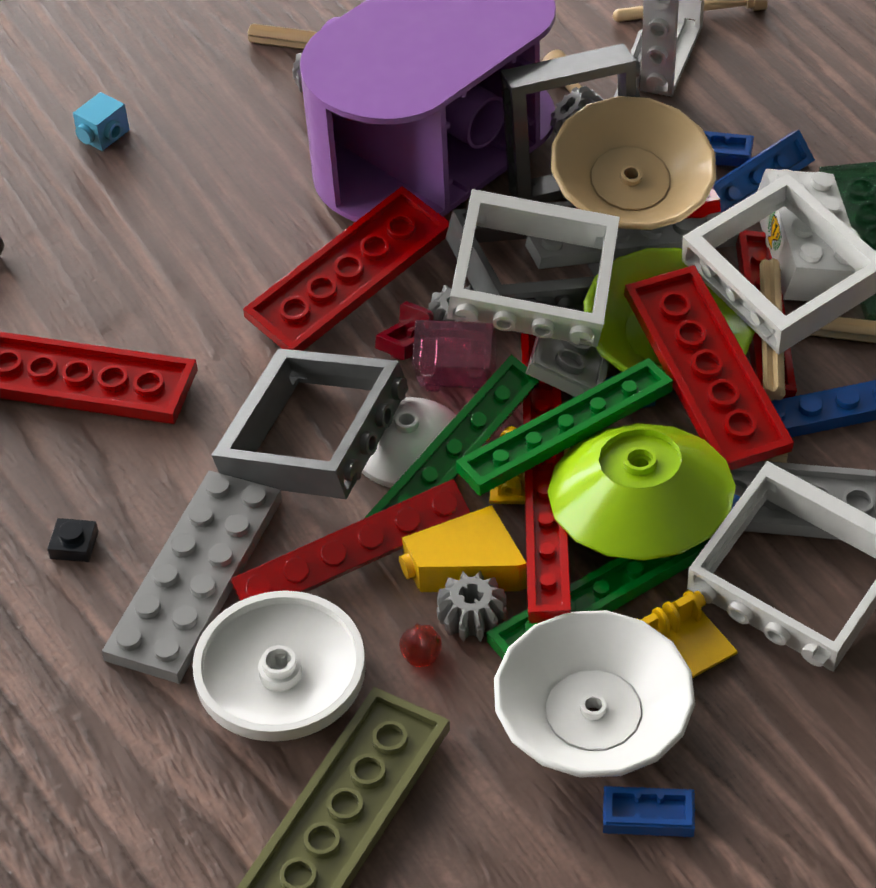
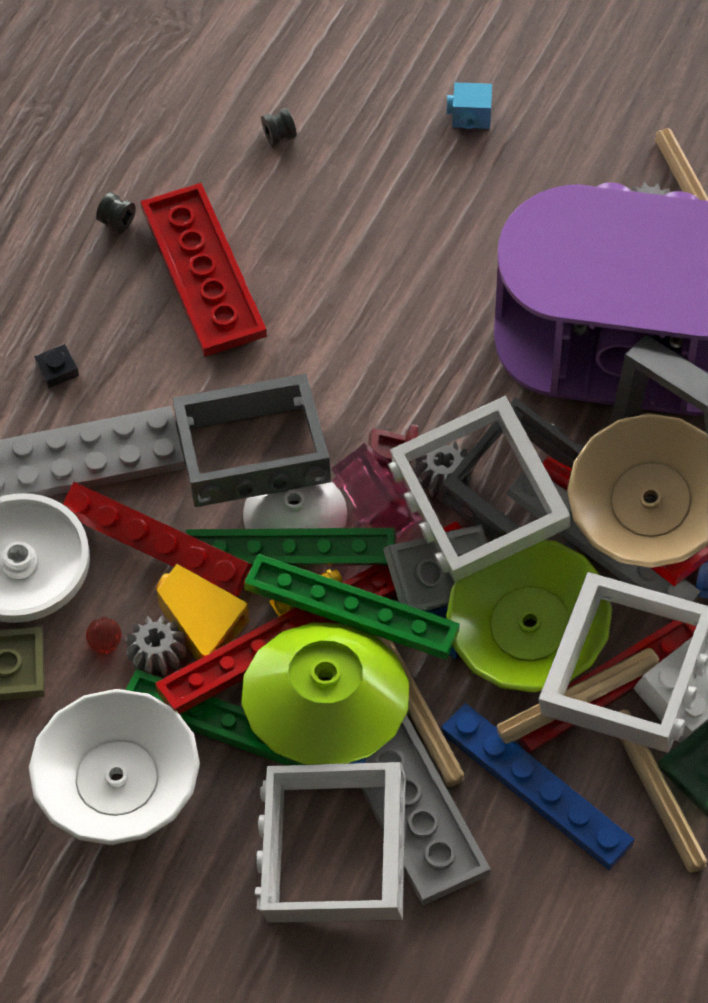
camera: 55 degrees right, 10 degrees up
(347, 271) = (427, 367): red plate -> none
(649, 811) = (50, 861): blue plate -> none
(691, 632) = (221, 801): yellow hinge -> none
(708, 367) = (484, 670): red plate -> none

